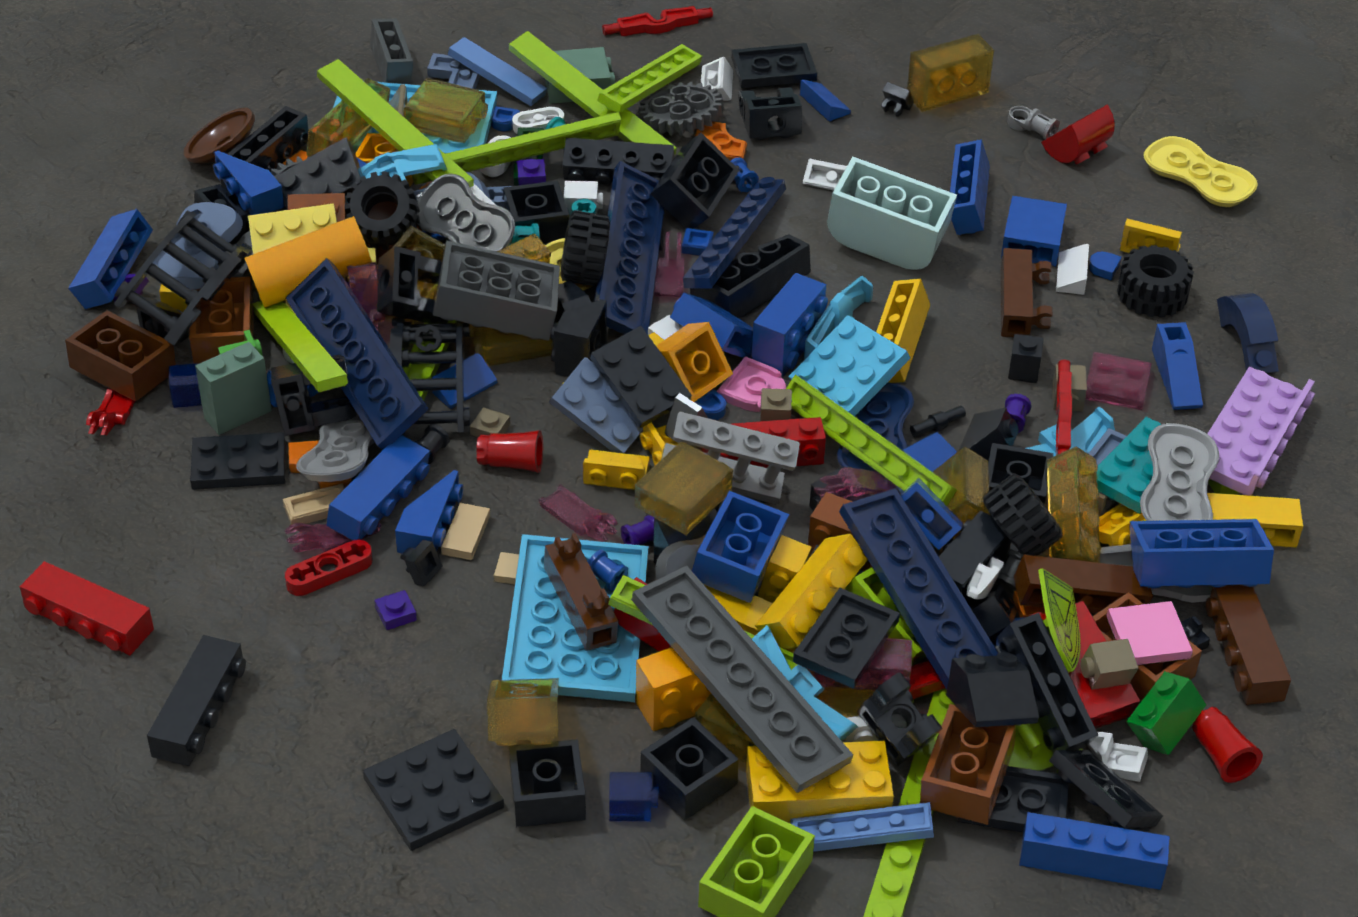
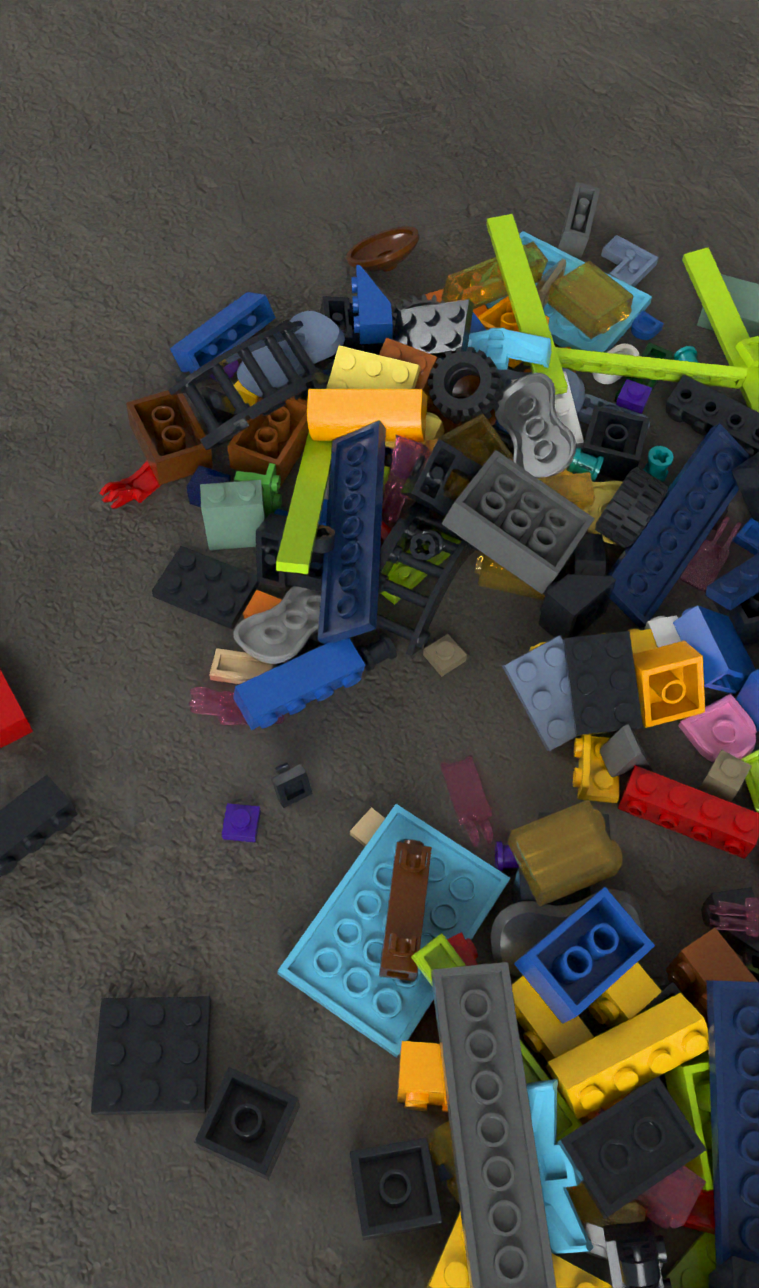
camera: 30 degrees right, 15 degrees up
(274, 140) = (418, 273): black brick -> none
(306, 568) = (188, 753): red beam -> none
(429, 514) = (324, 736): blue slope -> none
(465, 531) = (354, 765): tan tile -> none
(476, 379) = (459, 597): blue slope -> none
(497, 71) = (663, 276): medium blue tile -> none
(511, 450) = (445, 698): red plant -> none
(523, 711) = (267, 1031): clear yellow brick -> none
(535, 118) = (673, 339): white plate -> none
(582, 190) = (669, 437): white brick -> none
(606, 569) = (448, 893): blue bush -> none
(614, 469) = (532, 765): yellow bracket -> none
(631, 796) = (323, 1184): clear blue brick -> none
(713, 405) = (666, 736): blue tile -> none
(748, 445) = (643, 827): light grey fence -> none

